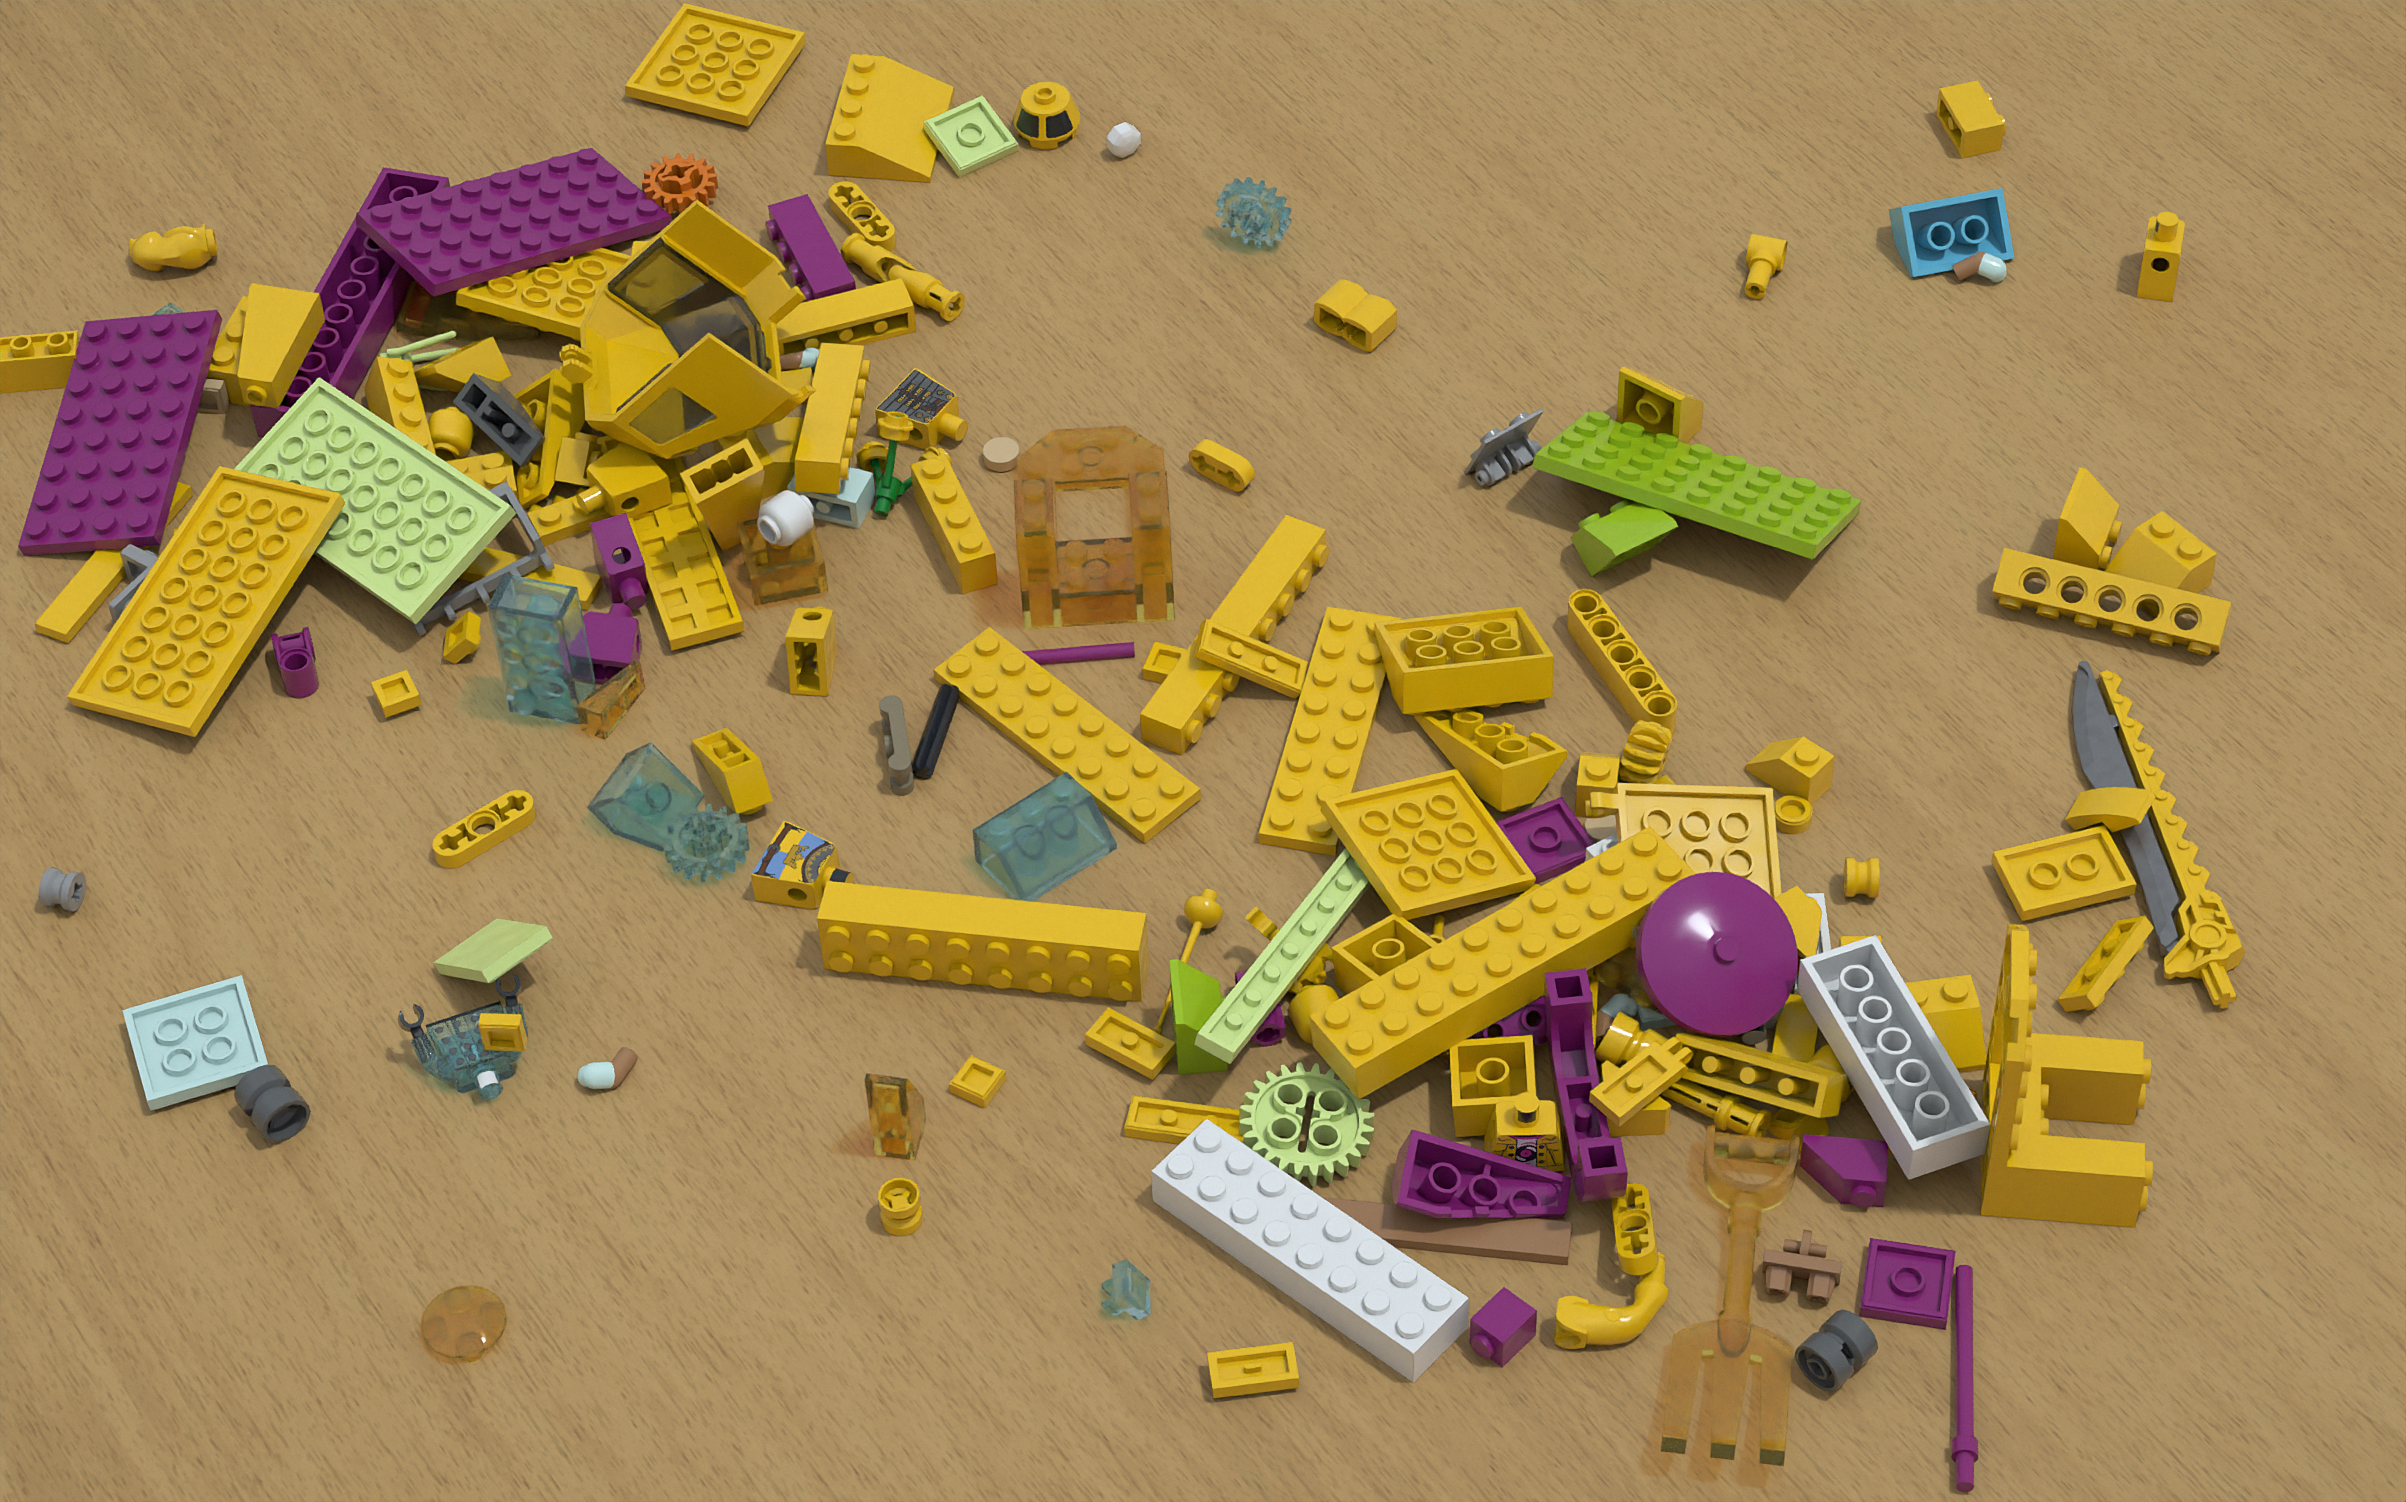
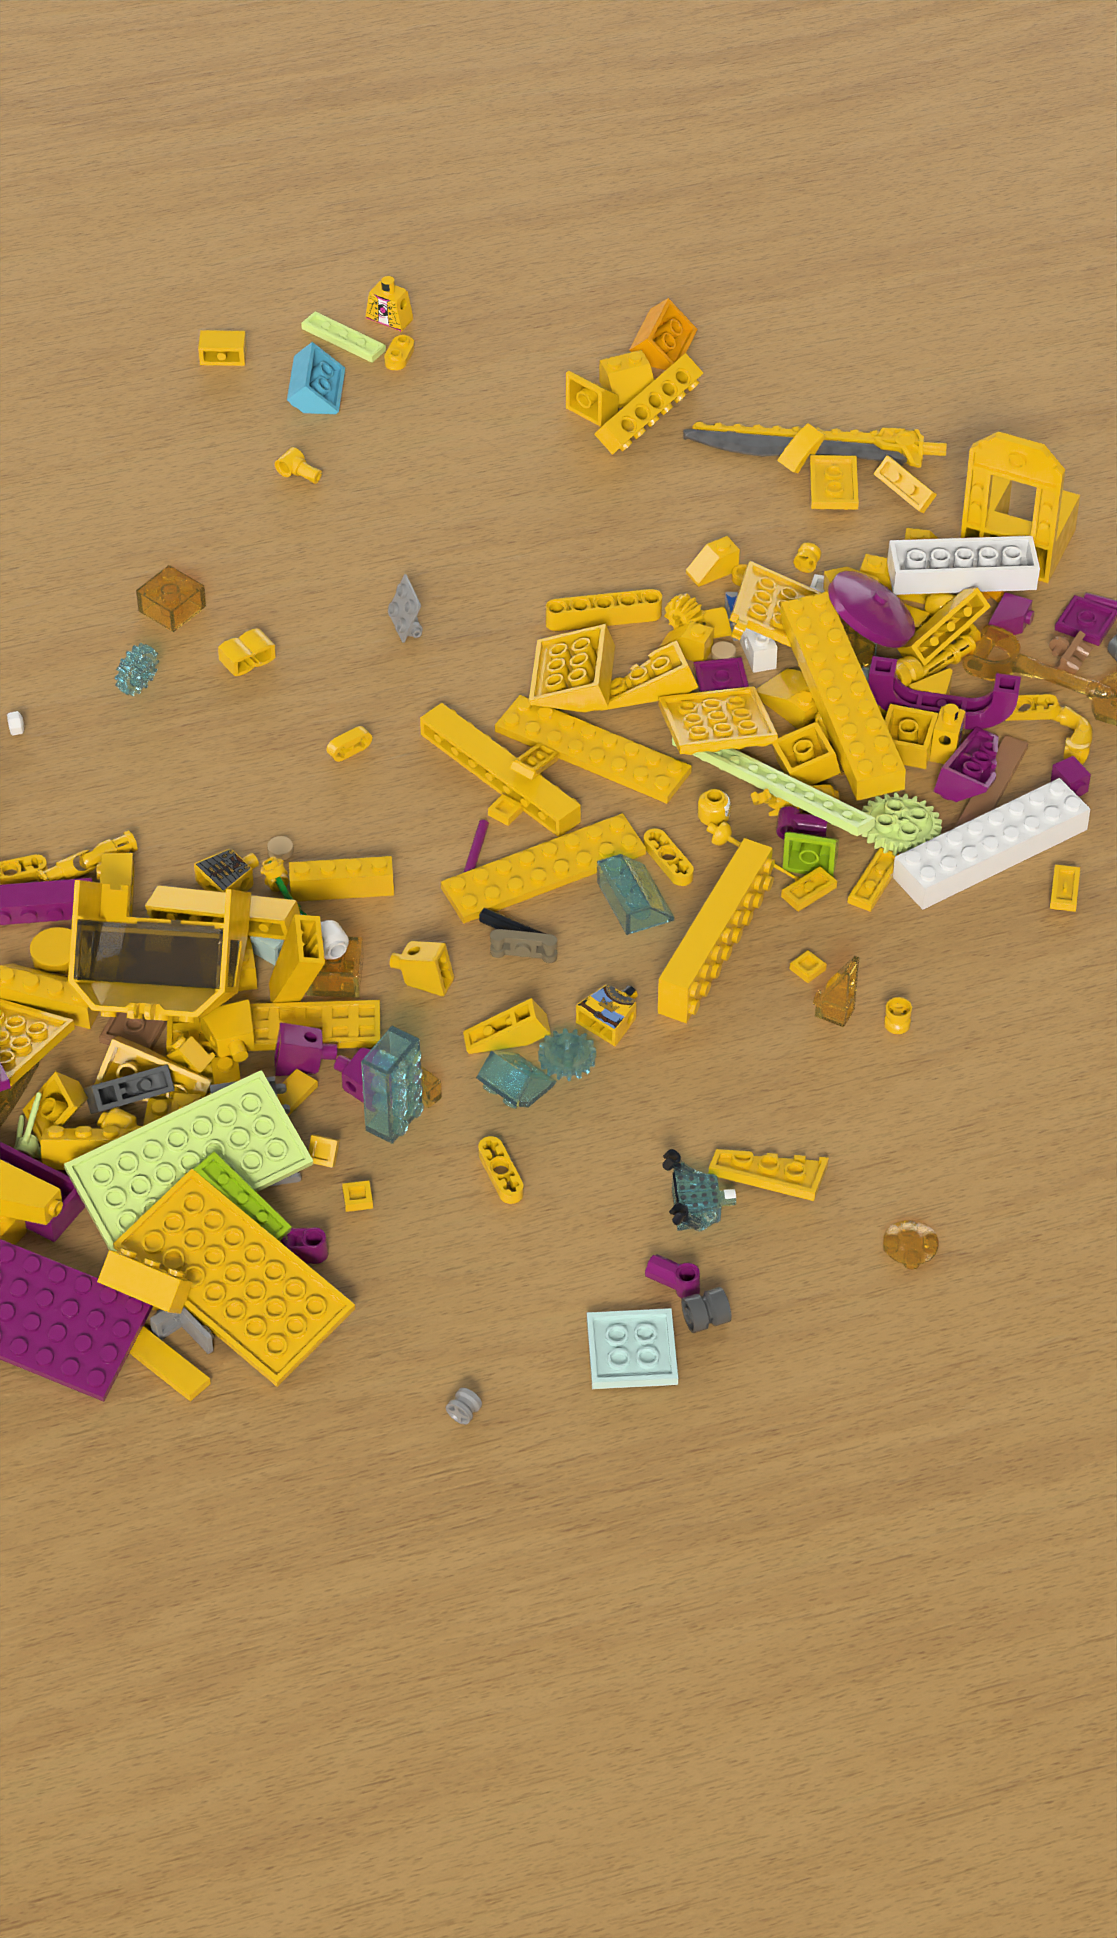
camera: 75 degrees left, 0 degrees up
(162, 511) = (145, 1280): none -> yellow brick
(322, 564) = (232, 1186): none -> lime plate
(330, 1058) = (681, 1277): none -> magenta piece
(493, 950) = (628, 1168): yellowish green tile -> none
(502, 1032) = (711, 1166): yellow tile -> none
(553, 1132) = (783, 1175): none -> yellow wing
(607, 1074) = (736, 1136): arm -> none
(1093, 578) = (418, 813): clear yellow bracket -> none
(1129, 1291) = (995, 926): clear light blue tile -> none
(1133, 881) = (669, 867): none -> yellow beam
(1244, 885) = (714, 807): none -> yellow head
(1422, 212) = (171, 598): none -> clear yellow brick
(1620, 535) = (511, 576): lime slope -> none
(1641, 1080) = (937, 669): yellow hinge -> none
(1657, 405) = (406, 539): yellow slope -> none
(1699, 484) = (483, 535): lime plate -> none
(1982, 264) = (348, 379): arm -> none
(2080, 237) = (343, 336): none -> yellowish green tile
(2080, 304) = (399, 352): none -> yellow plate
(2288, 585) = (664, 335): none -> light orange slope

